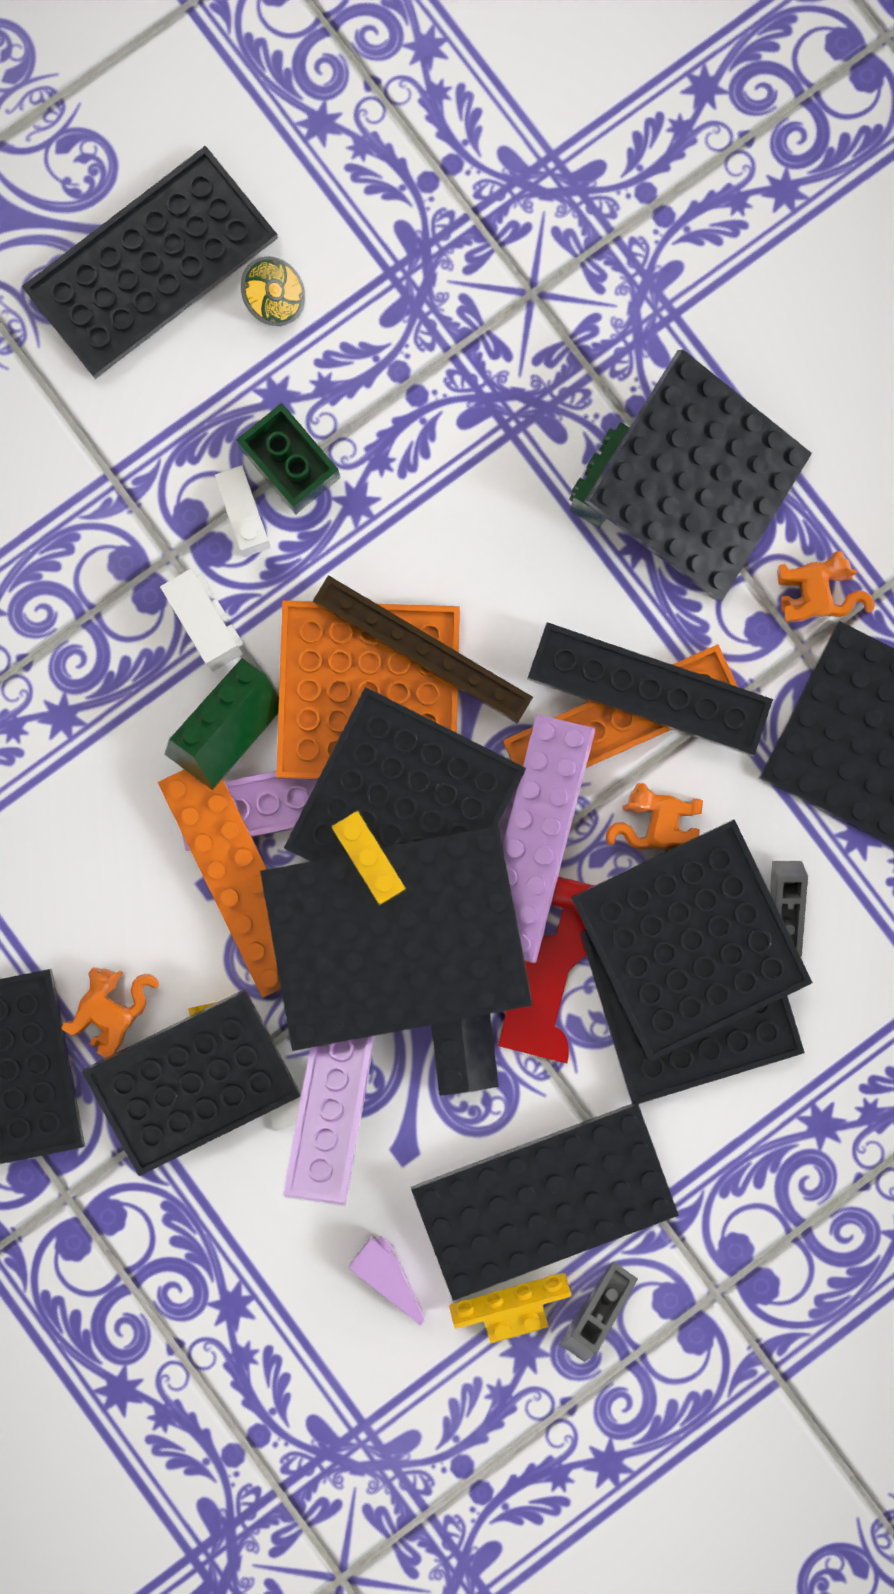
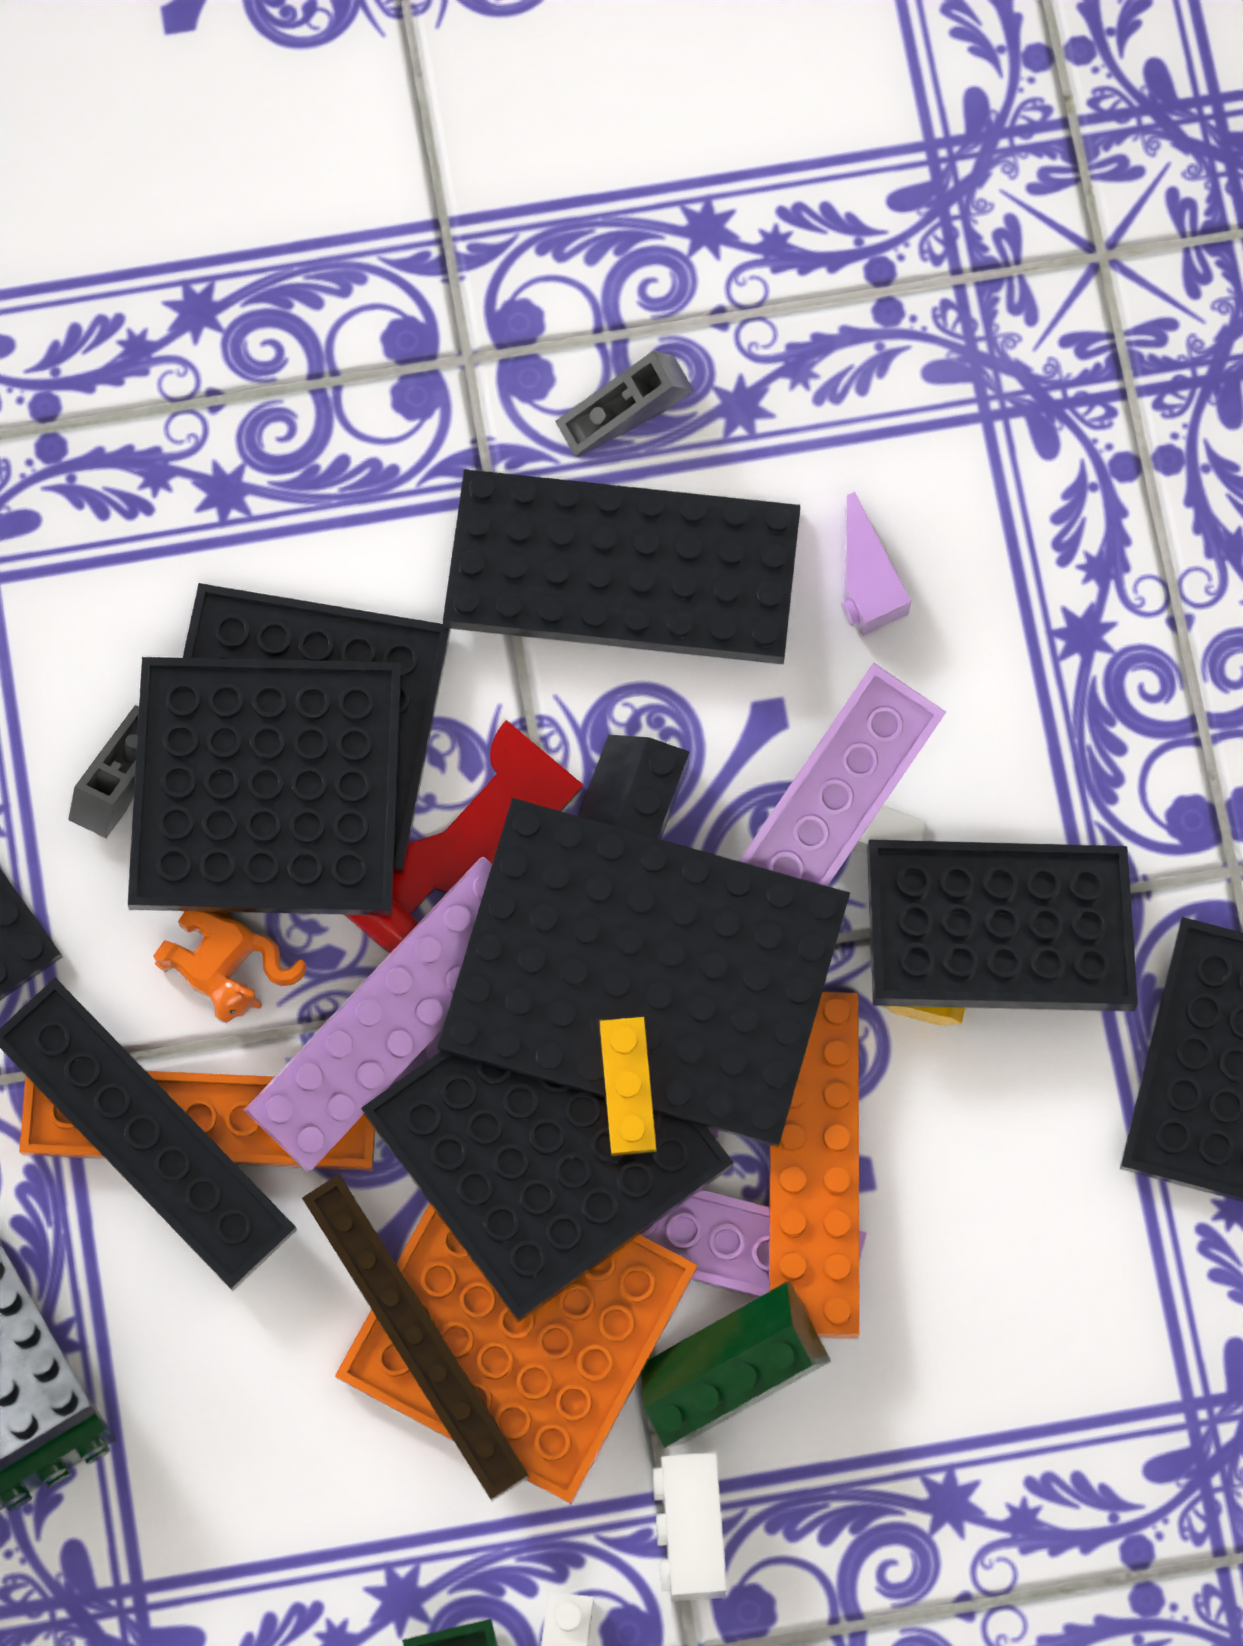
camera: 150 degrees left, 10 degrees down
(107, 1014) = (1073, 1072): orange animal -> none
(513, 1309) = (730, 460): yellow bracket -> none

